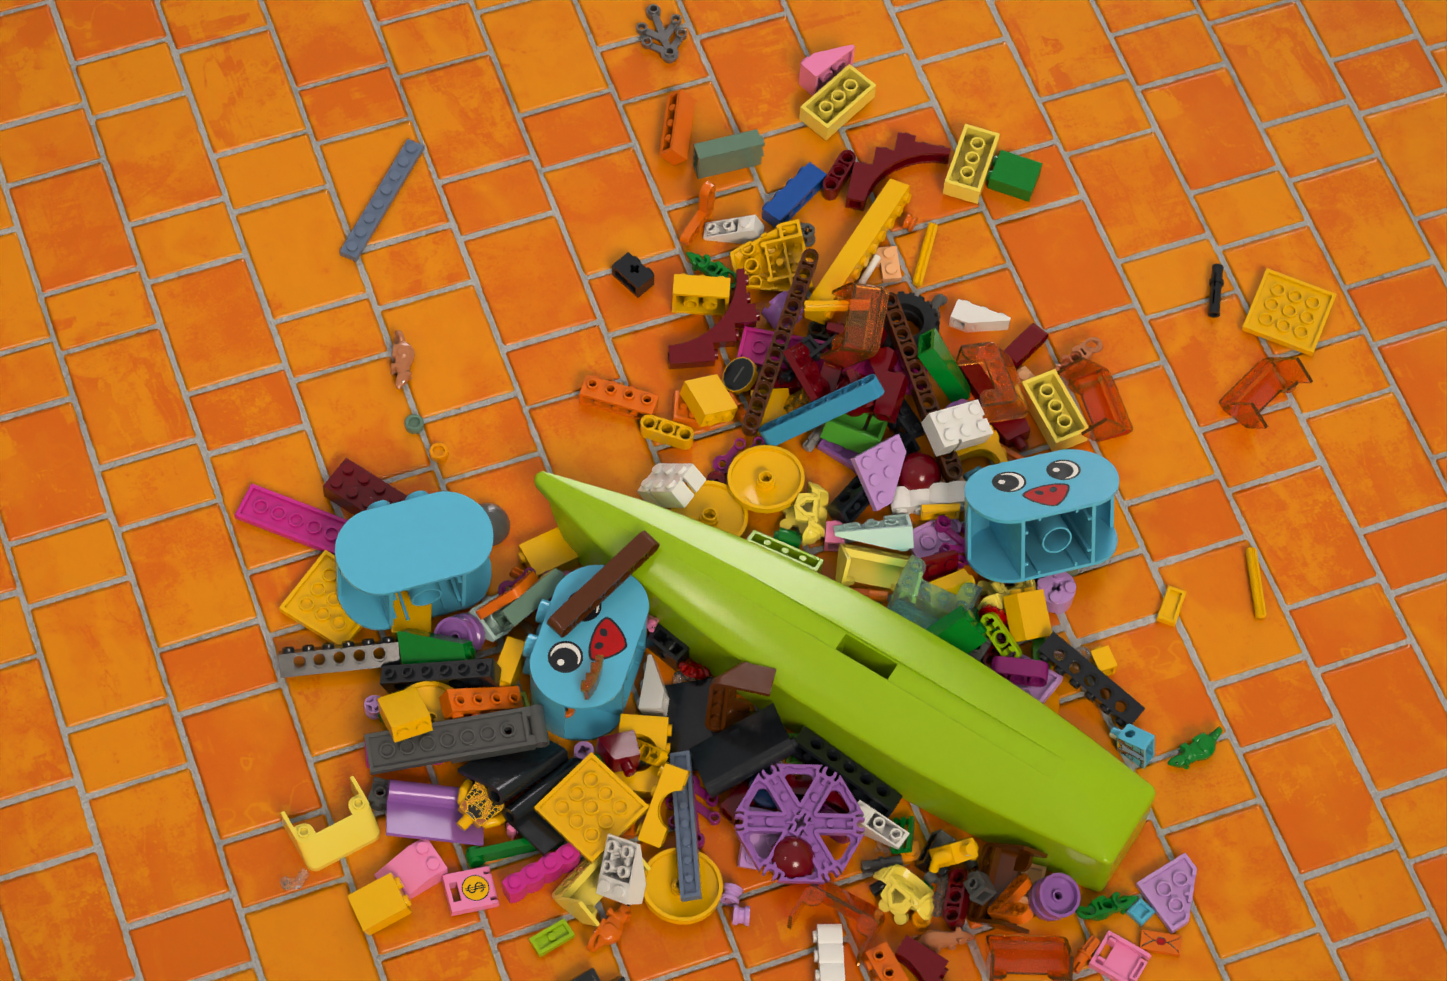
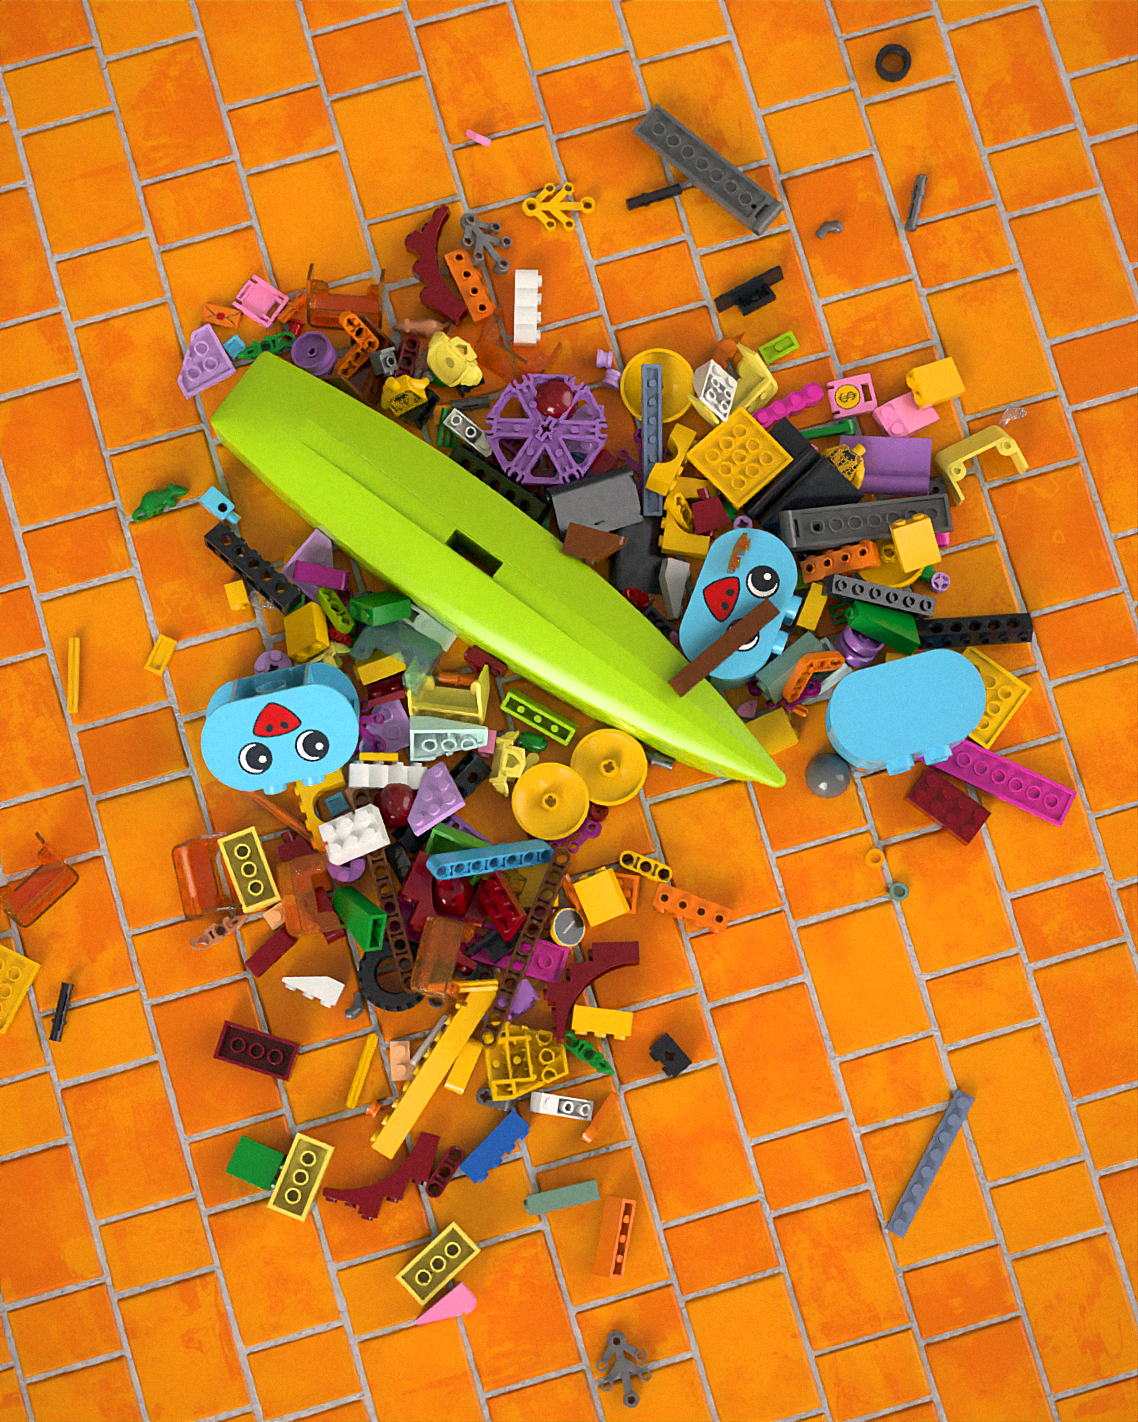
camera: 175 degrees left, 20 degrees up
(403, 358) = (909, 967): nougat animal -> none
(667, 487) = (649, 798): white piece -> none
(827, 256) = (464, 1066): none -> yellow beam
(1025, 261) = (257, 1051): none -> dark red brick
(1079, 930) = (295, 328): none -> red bush

